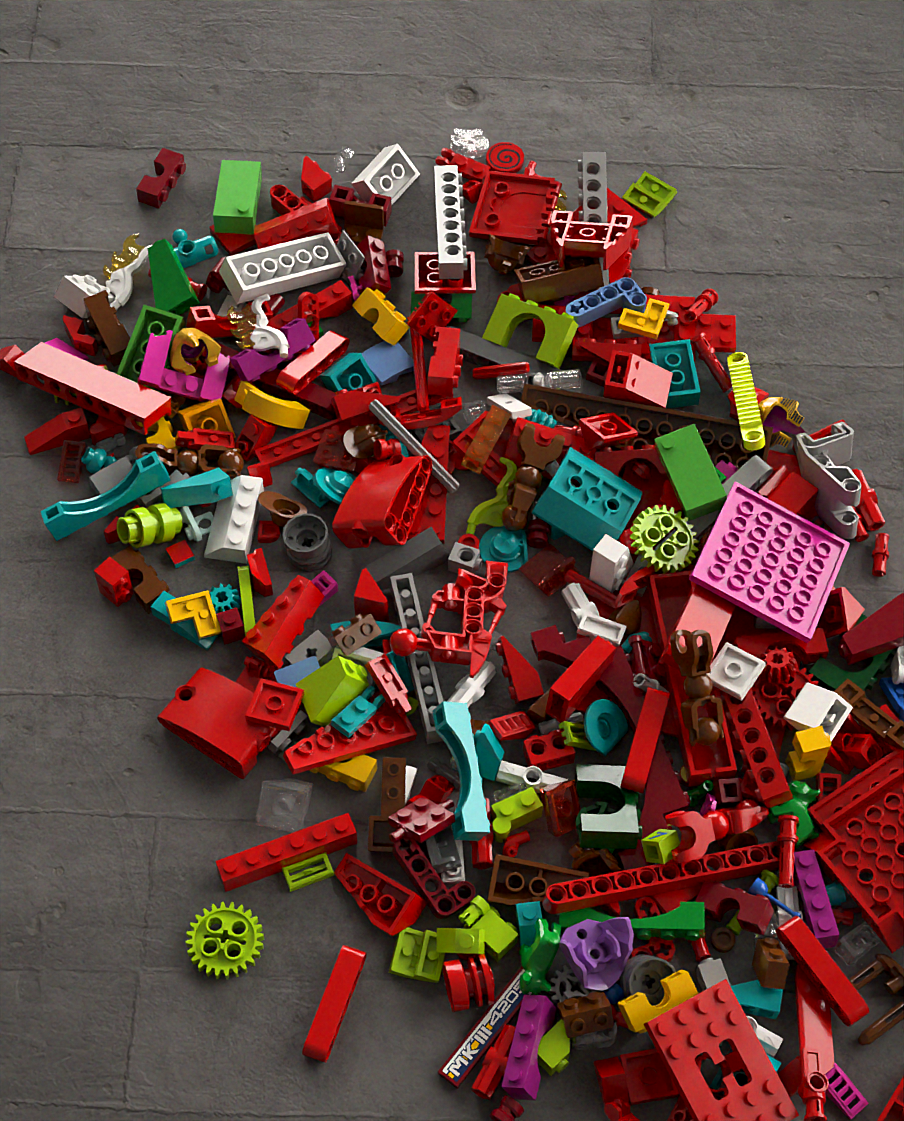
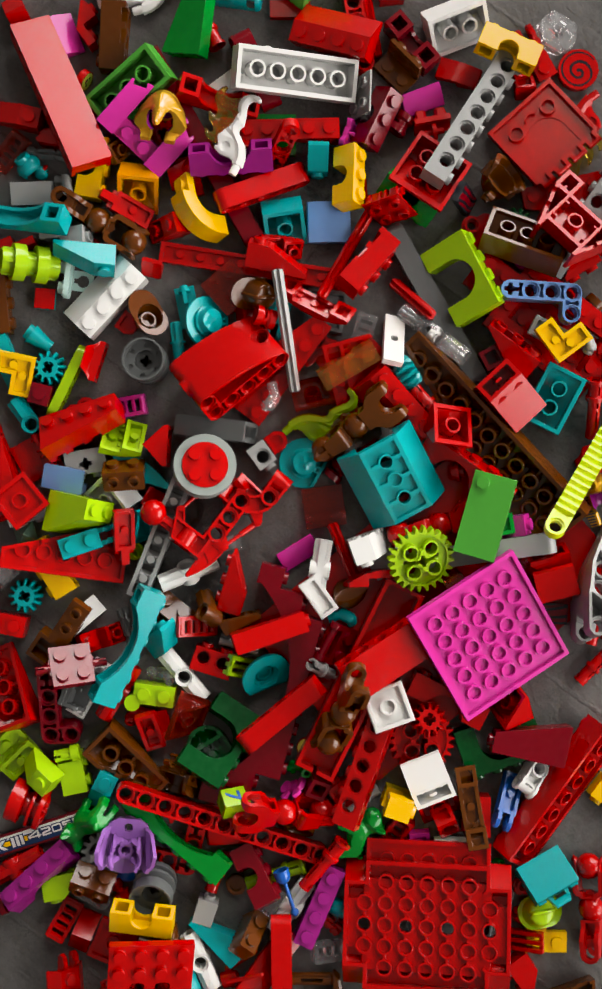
camera: 30 degrees right, 30 degrees up
(192, 585) = (38, 338): none -> teal cone
(226, 651) = (23, 413): none -> teal piece
(316, 509) = (177, 339): none -> teal axle
(331, 795) = (26, 603): none -> teal gear
(334, 614) = (124, 440): none -> lime slope
(344, 317) = (318, 159): none -> teal slope
(400, 237) = (423, 99): none -> dark pink slope
(417, 206) = (456, 72): none -> red slope
(420, 244) = (433, 124): none -> red hips
(422, 580) = (204, 466): none -> wheel
(440, 504) = (273, 397): none -> clear arm
(455, 160) = (523, 50): none -> yellow arch
(473, 490) = (312, 395): none -> clear red slope
(486, 280) = (463, 198): none -> black tile
(511, 703) = (207, 610): none -> reddish brown piece
(536, 842) = (152, 728): none -> red slope
(555, 614) = (297, 552): none -> dark pink slope
(589, 1101) = (54, 933): none -> red slope
(788, 1028) = (231, 977): none -> red plant

